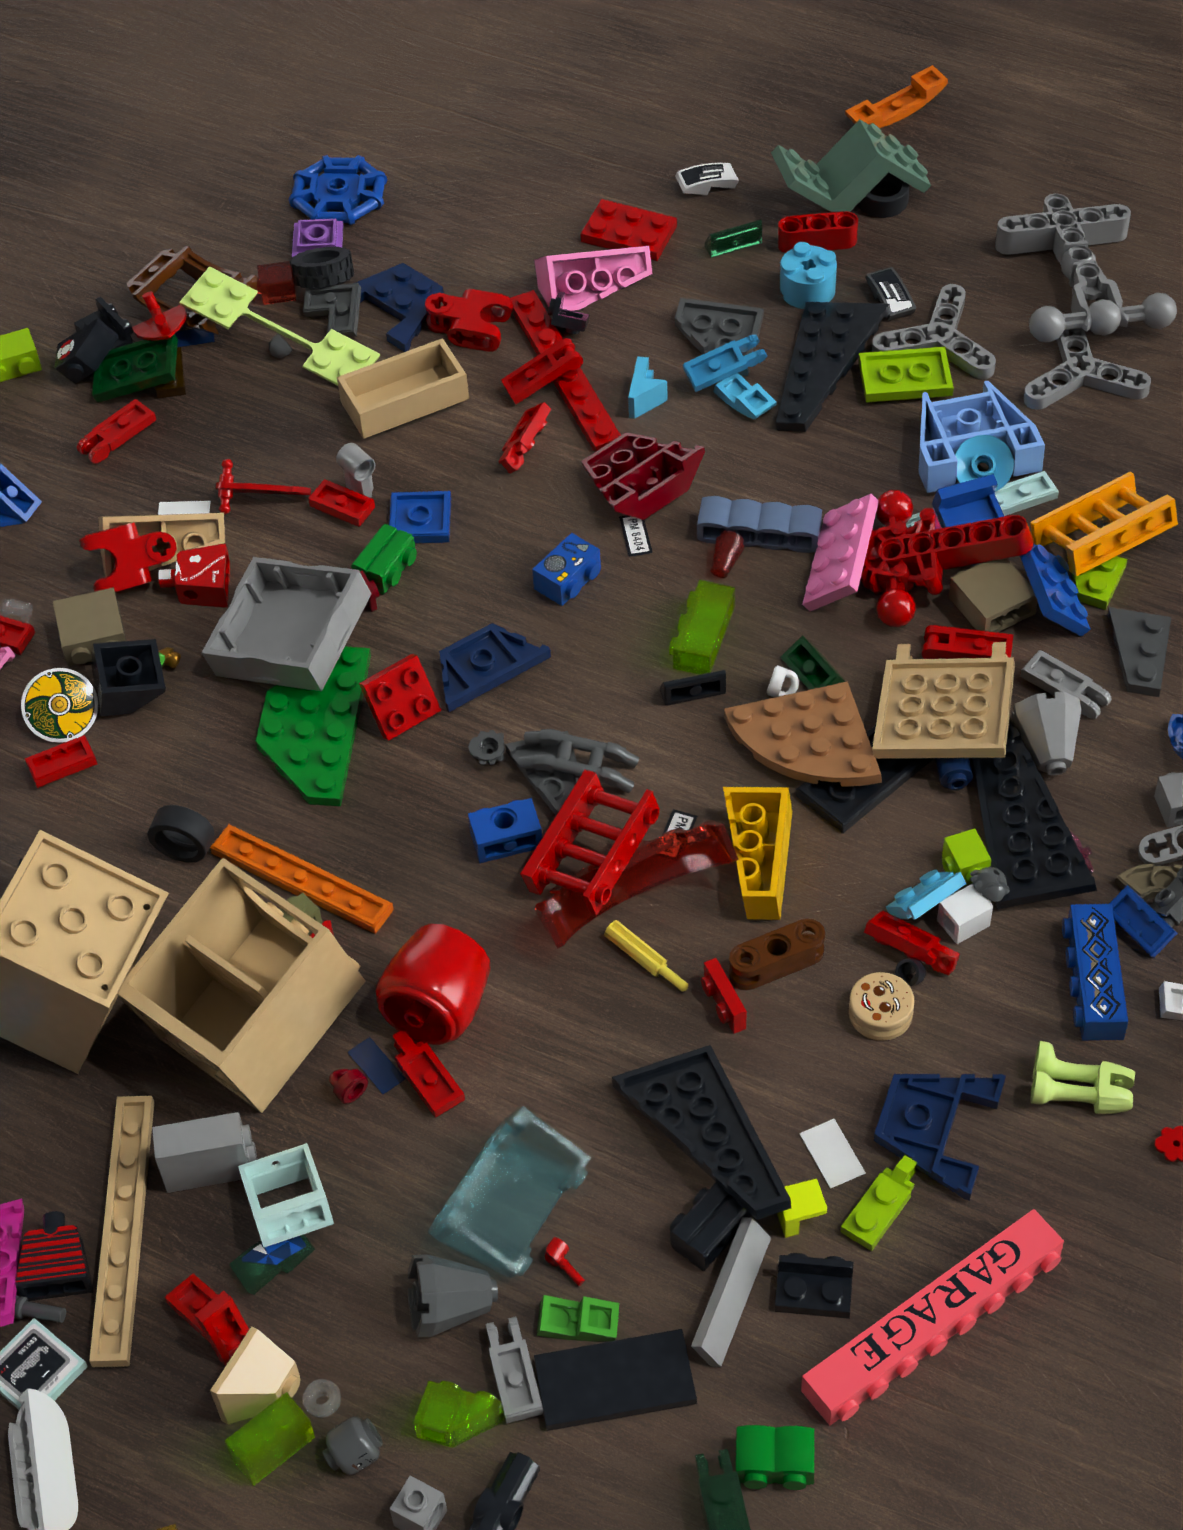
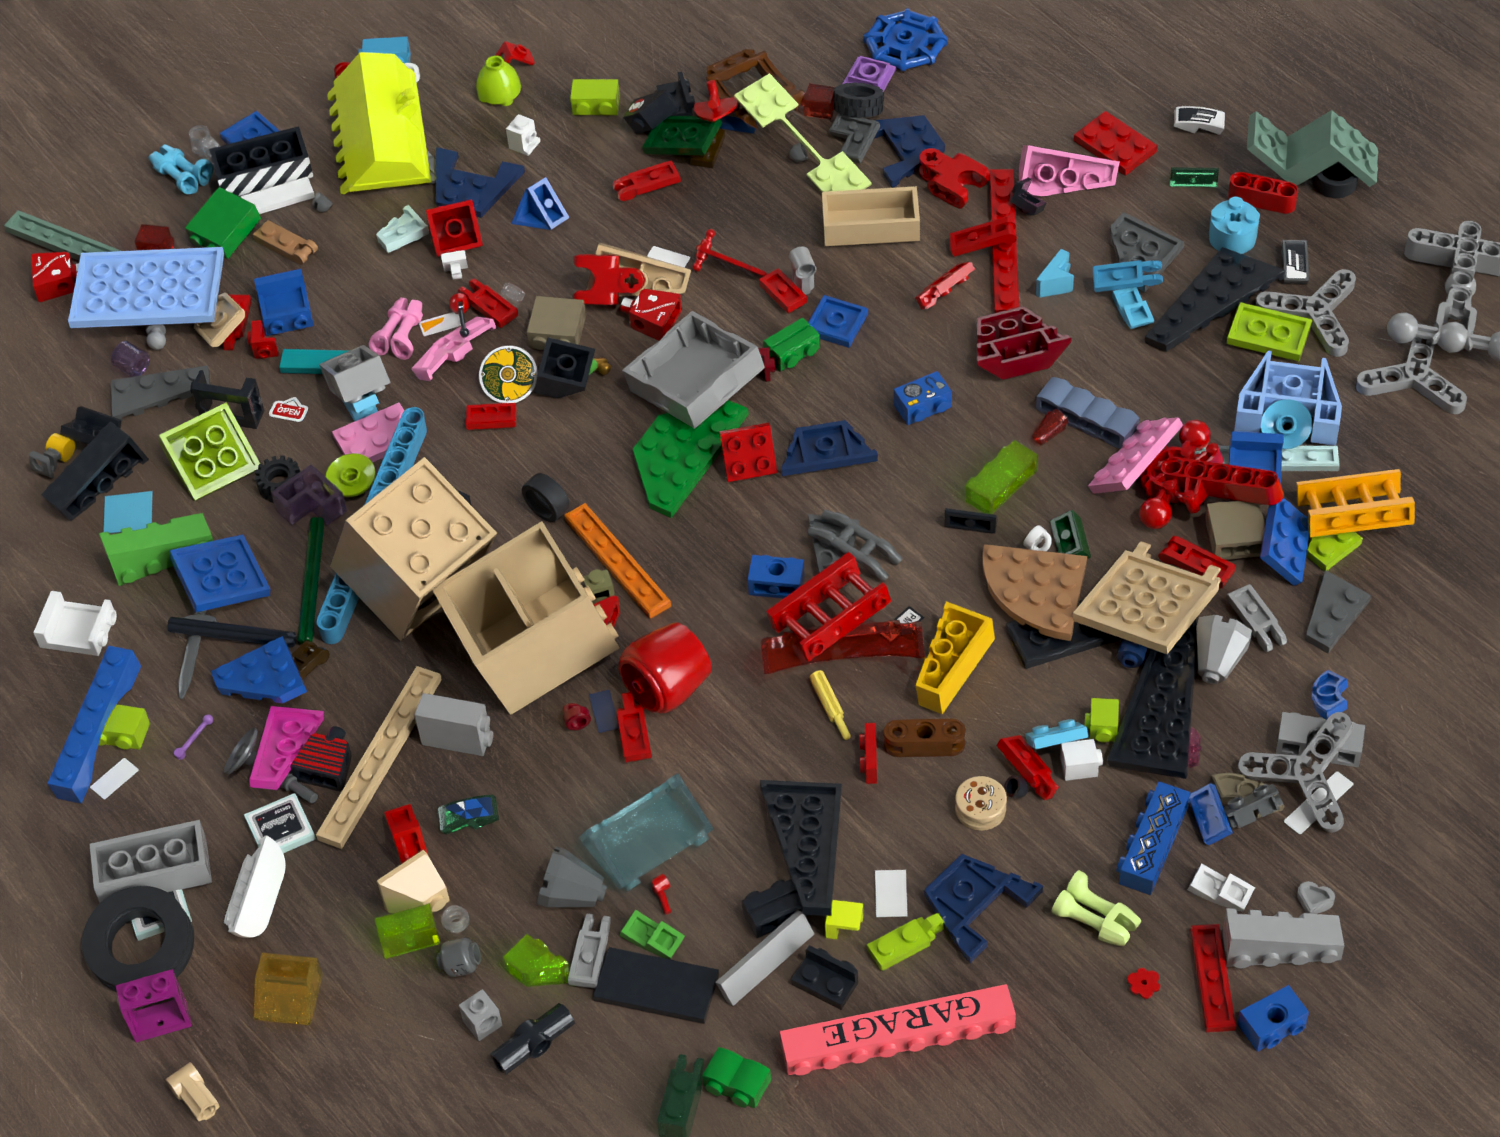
camera: 25 degrees right, 0 degrees up
(291, 1216) = (493, 790): light aqua window -> none
(485, 743) = (795, 508): dark grey animal -> none
(635, 535) = (991, 390): sticker -> none
(923, 89) = (1391, 106): orange slope -> none
(990, 883) = (1107, 744): dark grey animal -> none

